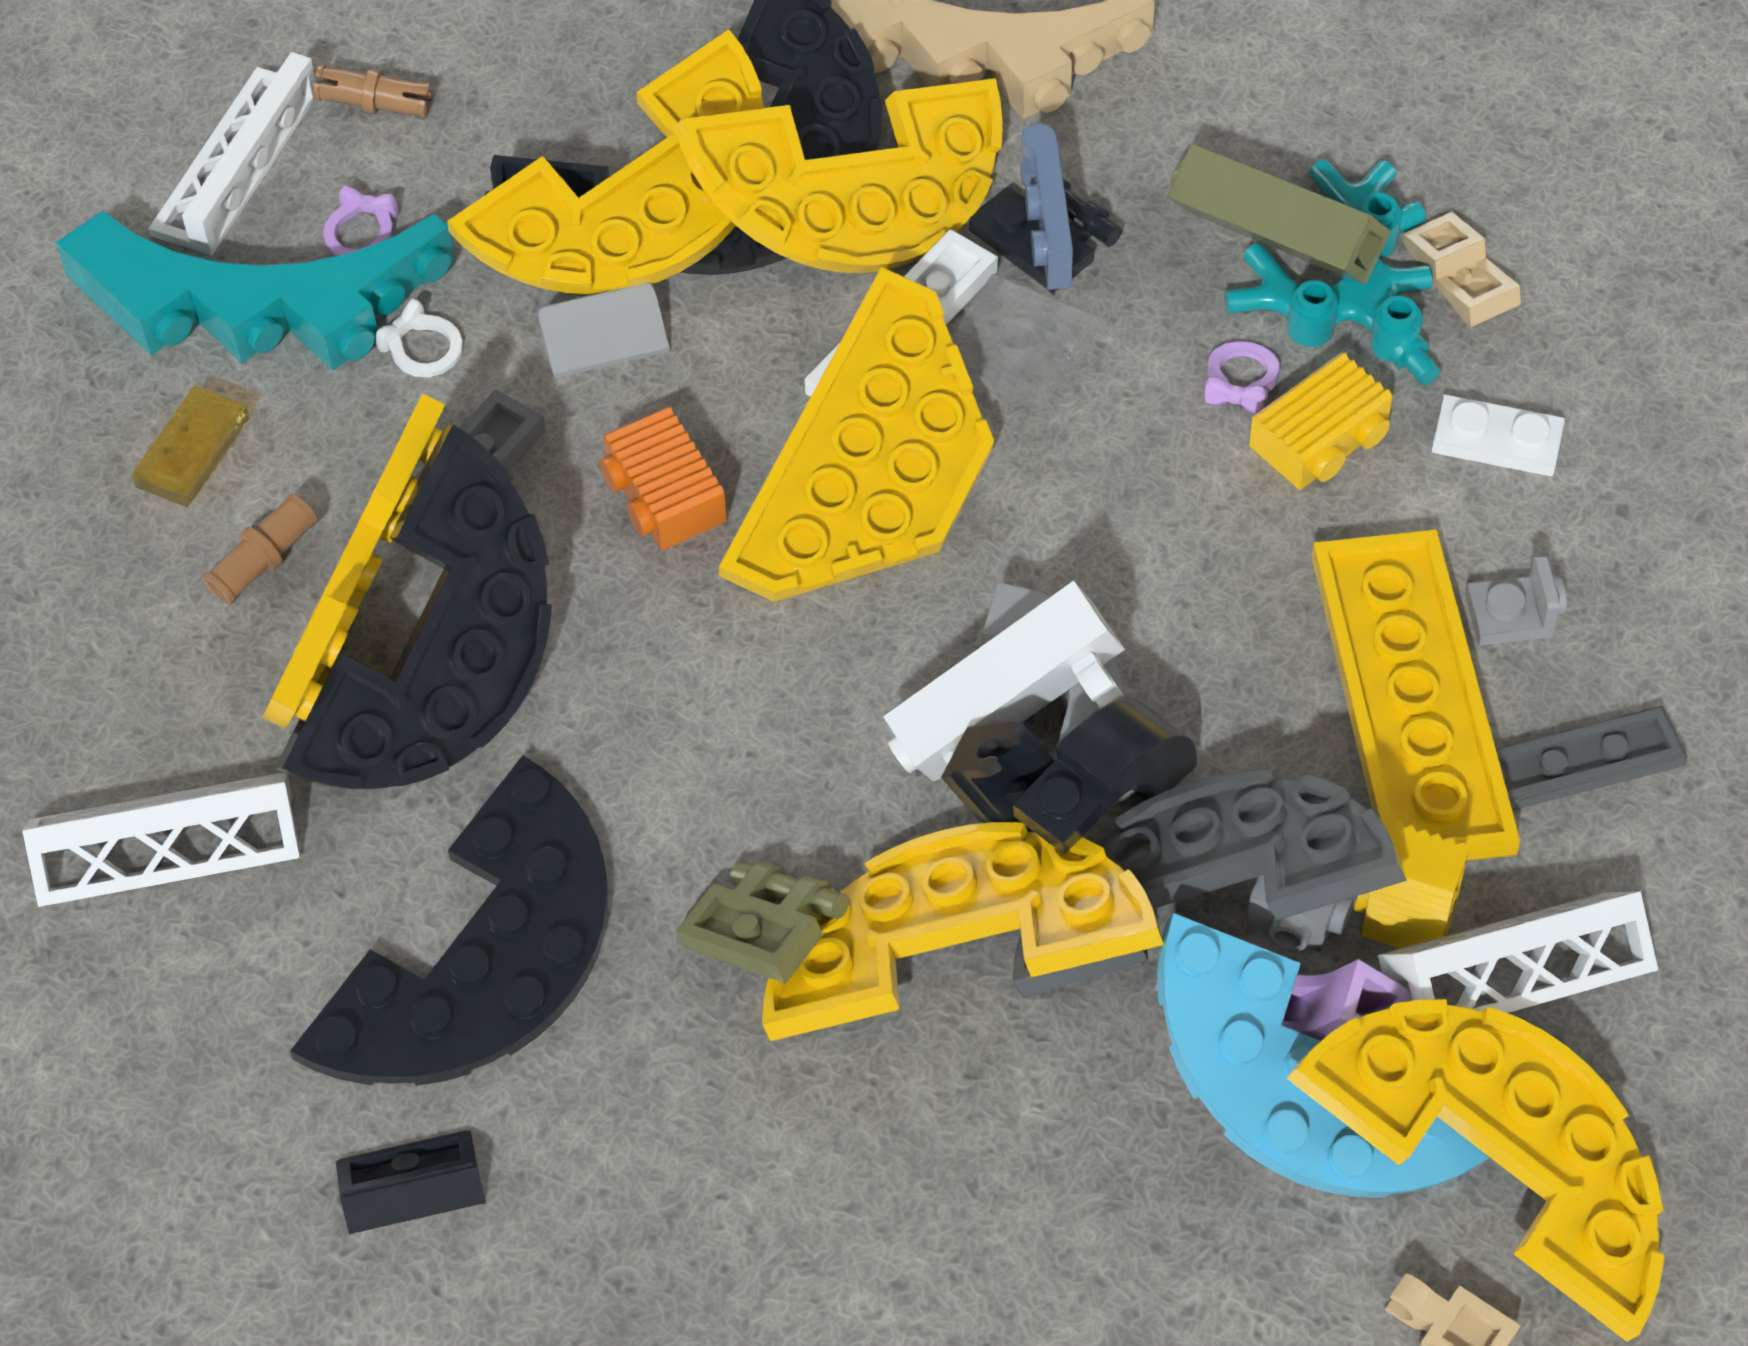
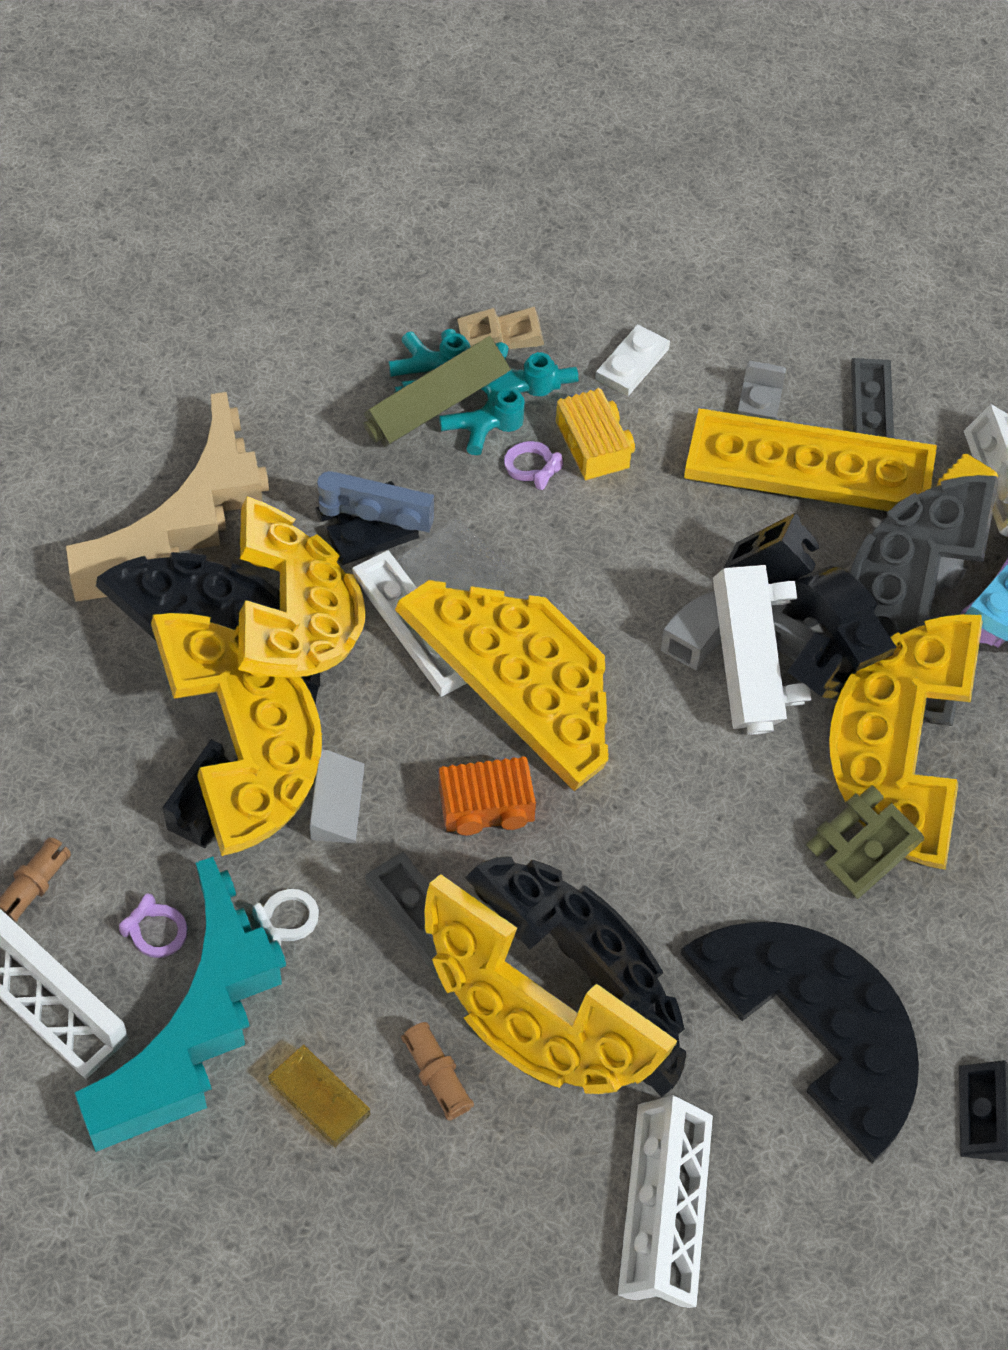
camera: 75 degrees left, 0 degrees up
(1181, 665) = (777, 548): none -> black hinge

